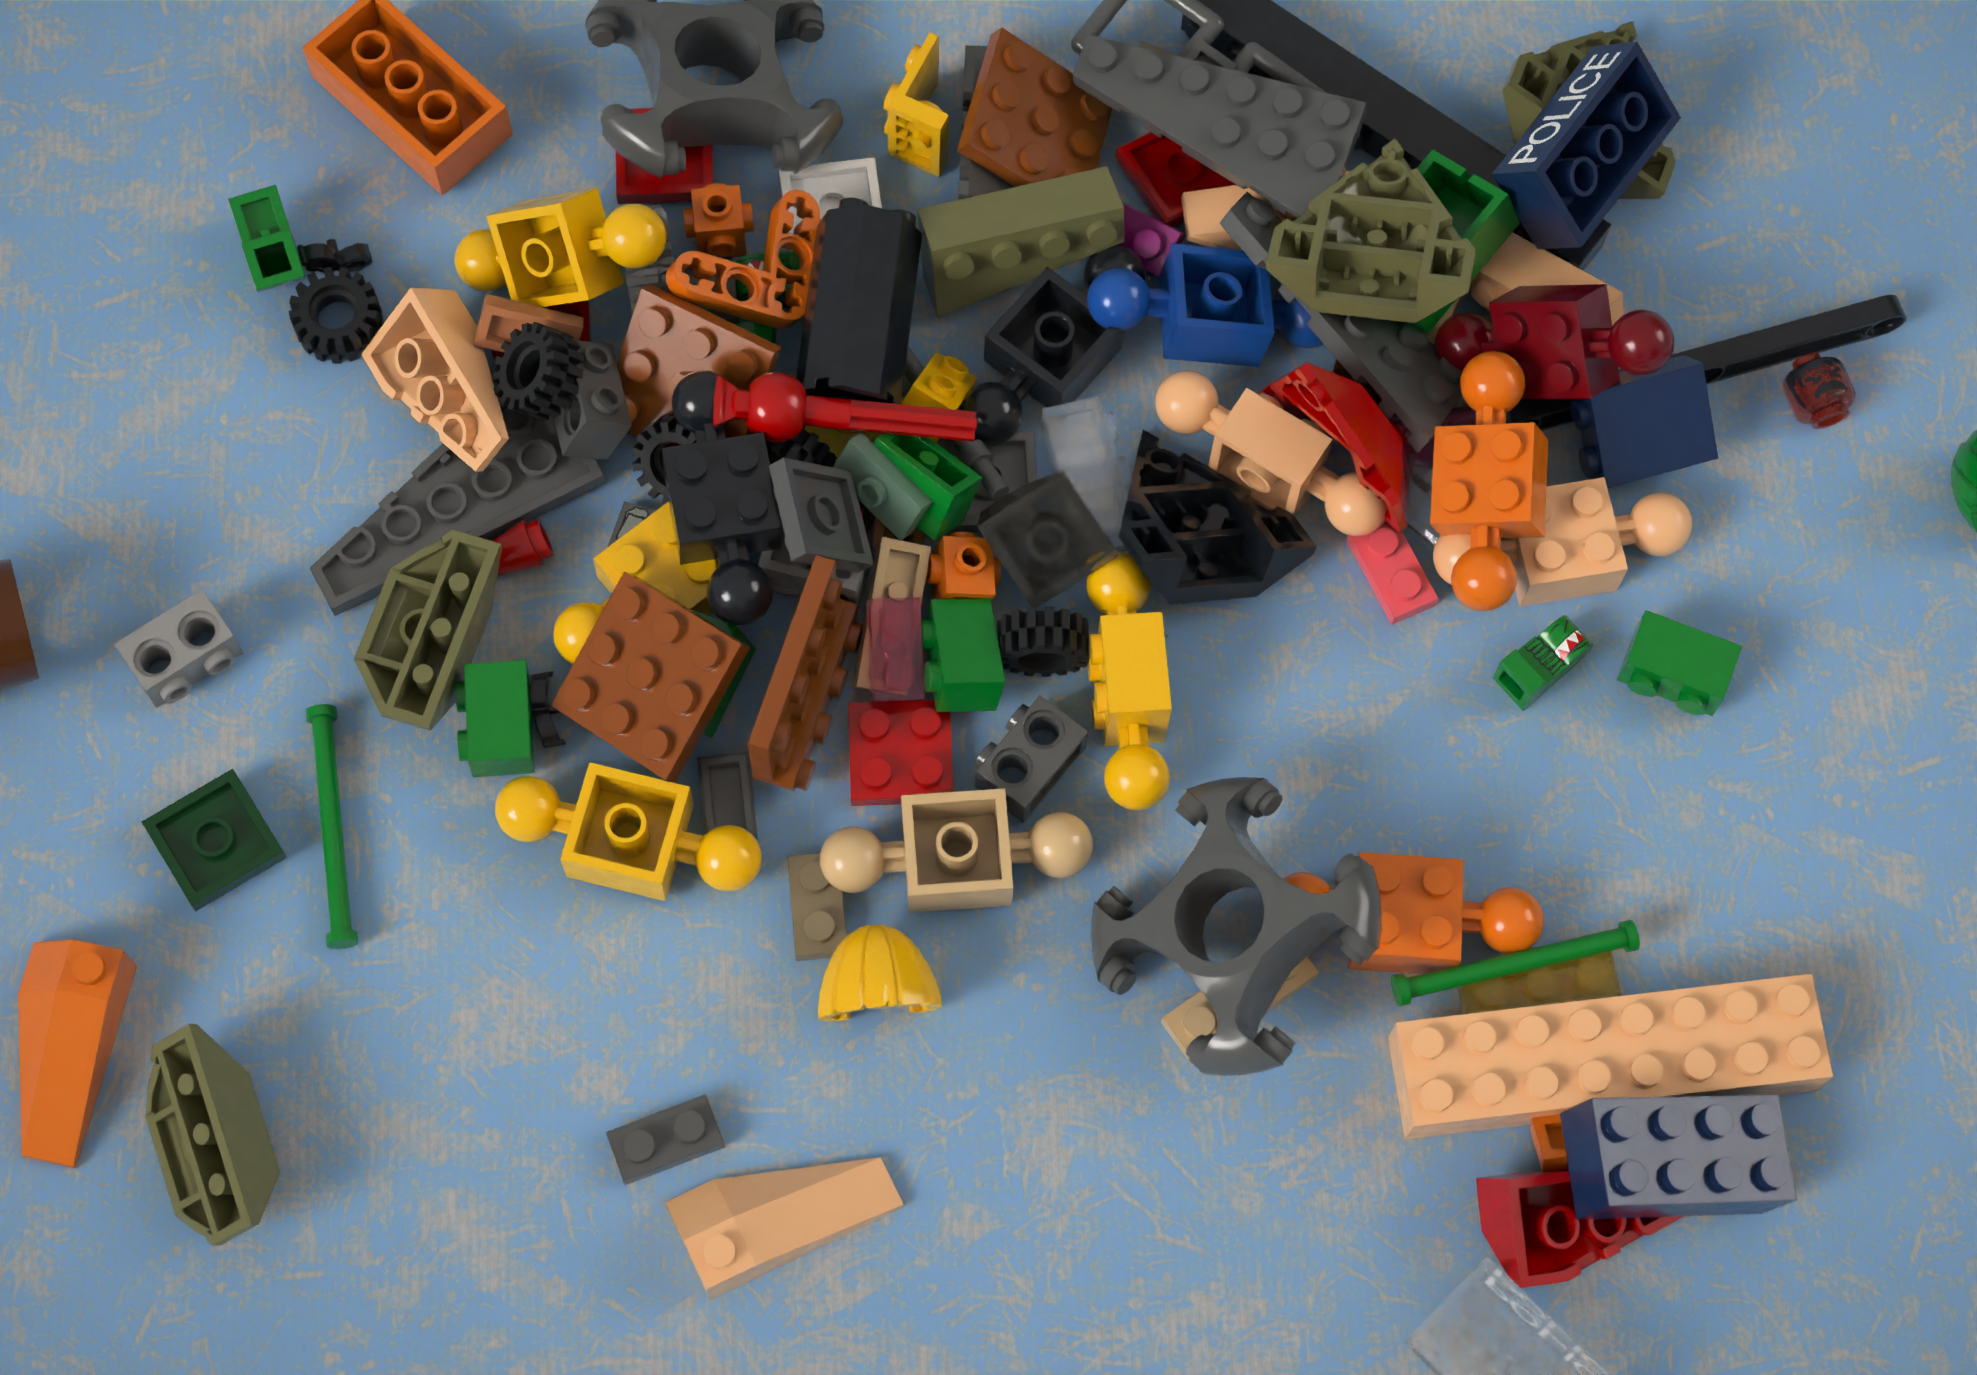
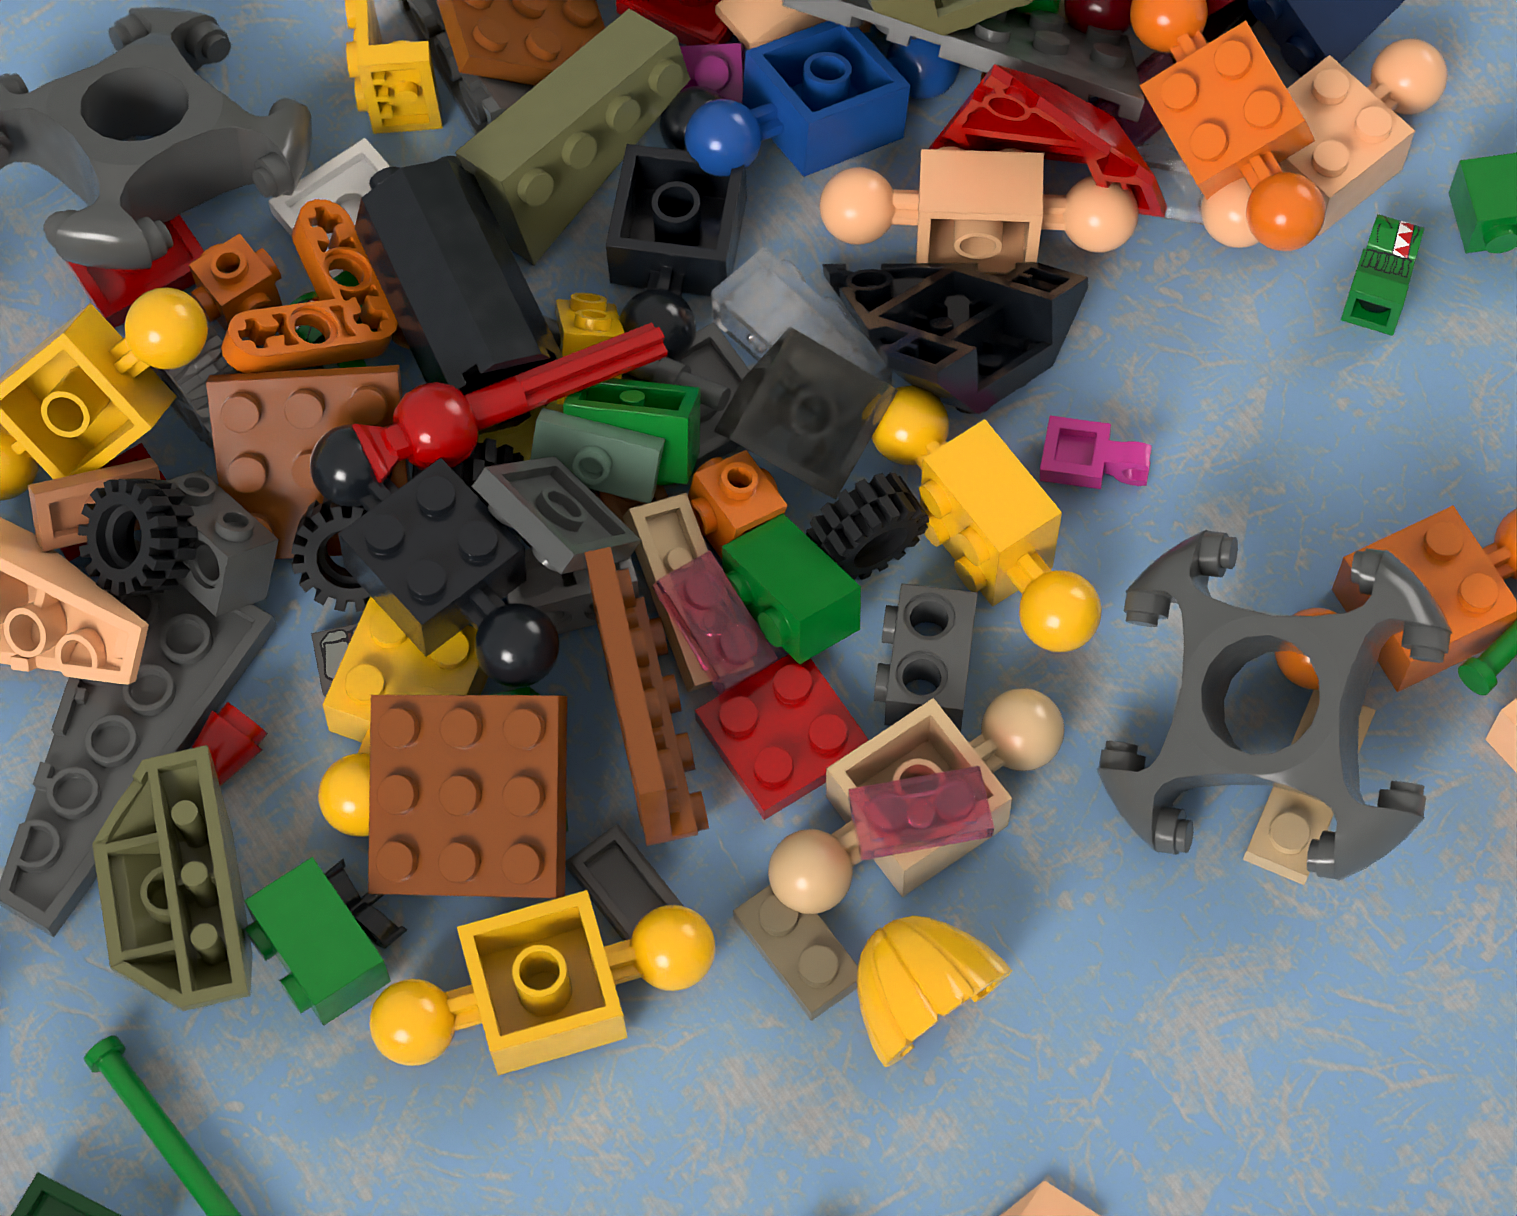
camera: 25 degrees left, 5 degrees down
(942, 862) = (920, 812): none -> clear pink plate
(1237, 671) = (1081, 452): none -> dark pink plate
(1393, 572) = (1172, 268): coral plate -> none

